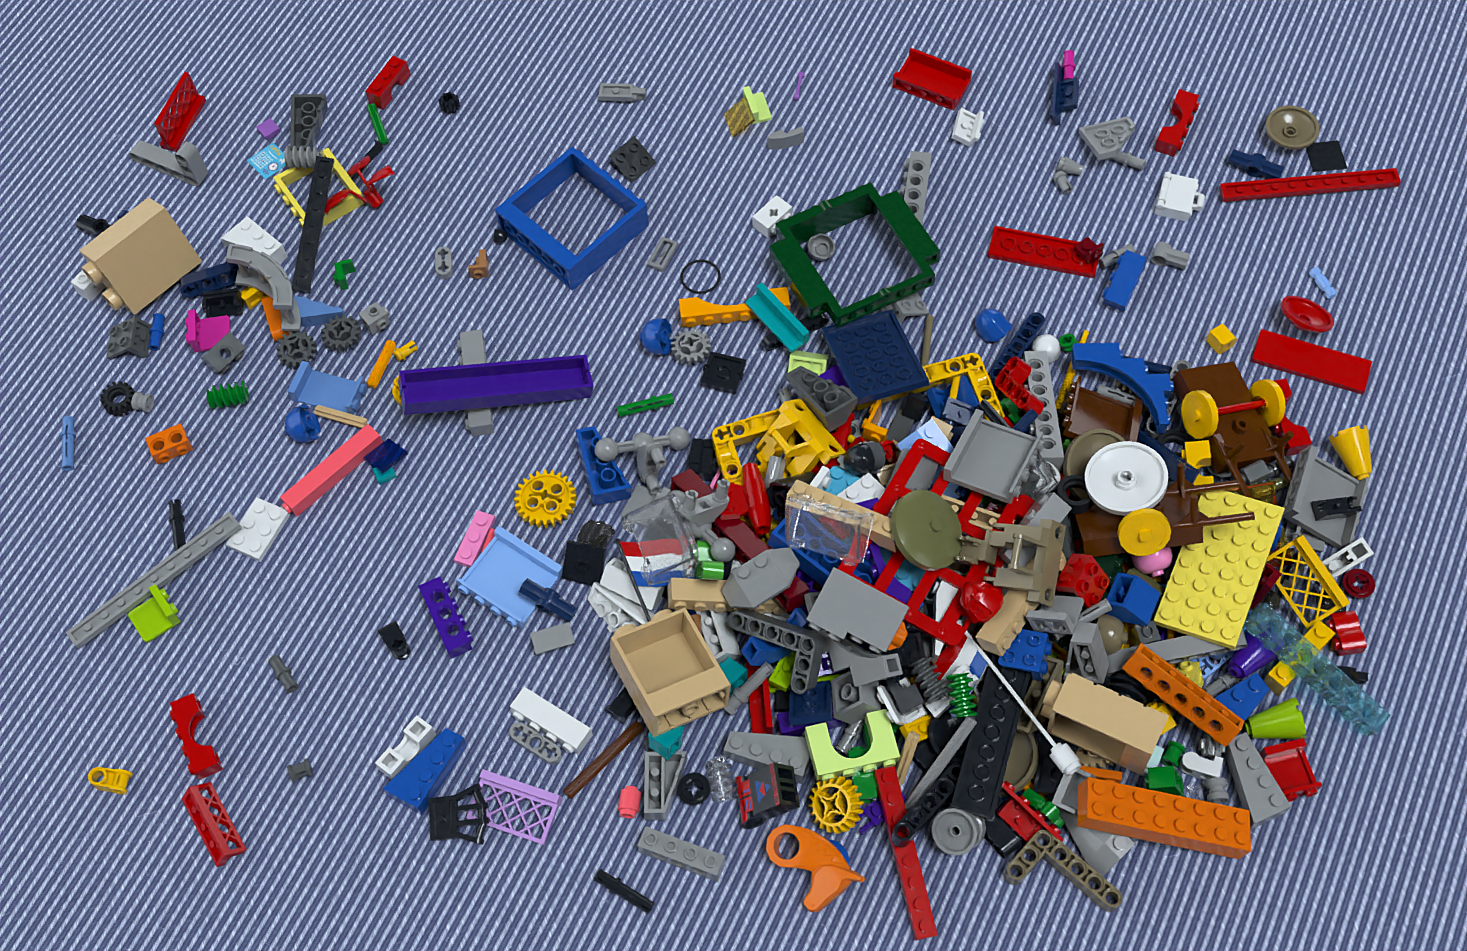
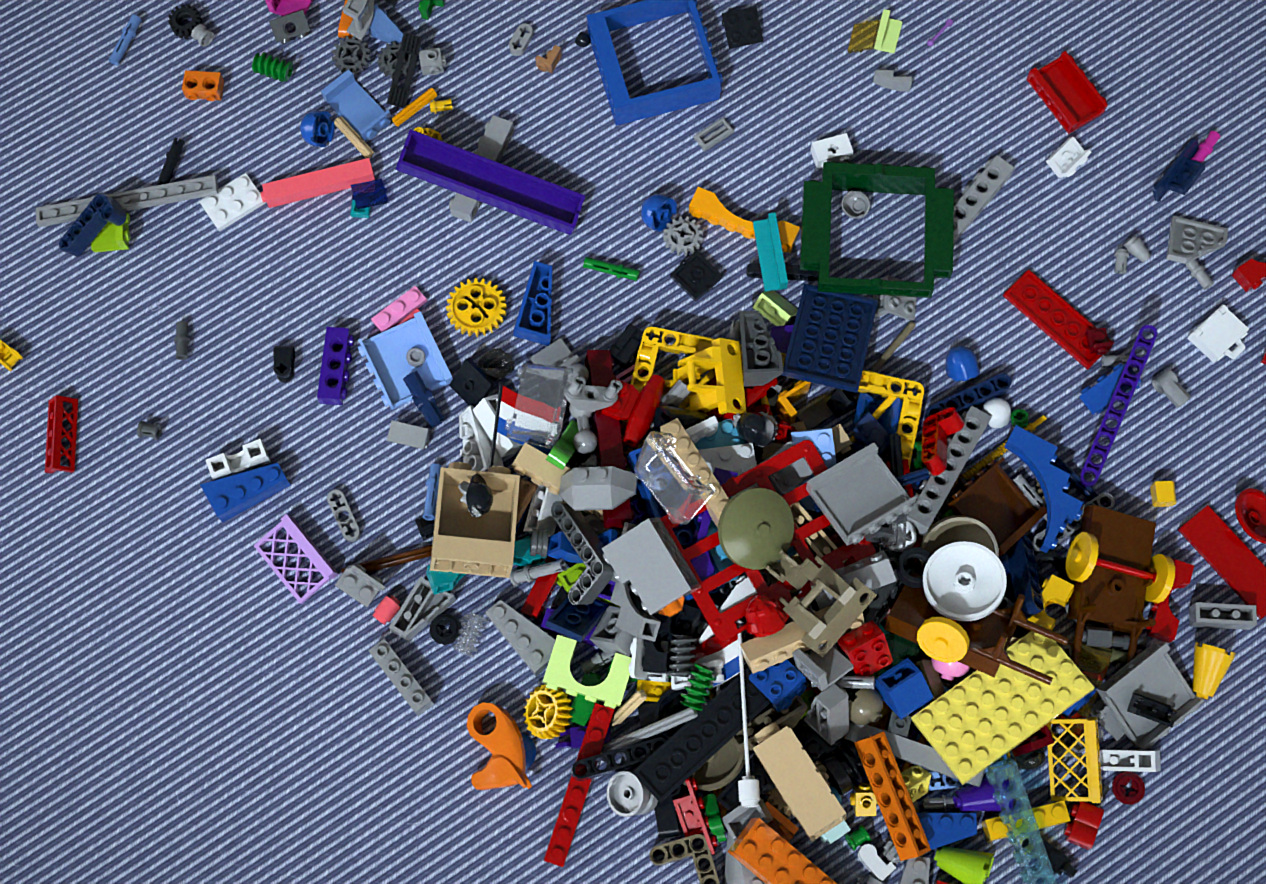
camera: 30 degrees right, 10 degrees up
(132, 615) = (90, 223): none -> dark blue beam
(188, 714) = (89, 332): red arch -> none
(349, 311) = (411, 45): none -> black container
(445, 818) = (236, 536): black plate -> none
(517, 569) = (415, 357): none -> light grey tile
(551, 721) = (366, 504): white brick -> none
(591, 791) = (359, 584): none -> light grey bracket
(602, 668) = (431, 495): none -> medium blue pin
(616, 886) = (339, 680): black pin -> none
(648, 451) = (583, 313): light grey connector -> none
(661, 643) = (476, 495): none -> black hair
(700, 292) = (736, 156): black piece -> none
(735, 660) = (539, 542): none -> dark grey wheel
(766, 794) = (496, 670): black piece -> none
(1143, 294) = (1125, 399): none -> dark purple beam
(1165, 780) = (831, 859): green brick -> none
(1335, 405) = (1222, 616): none -> light grey brick

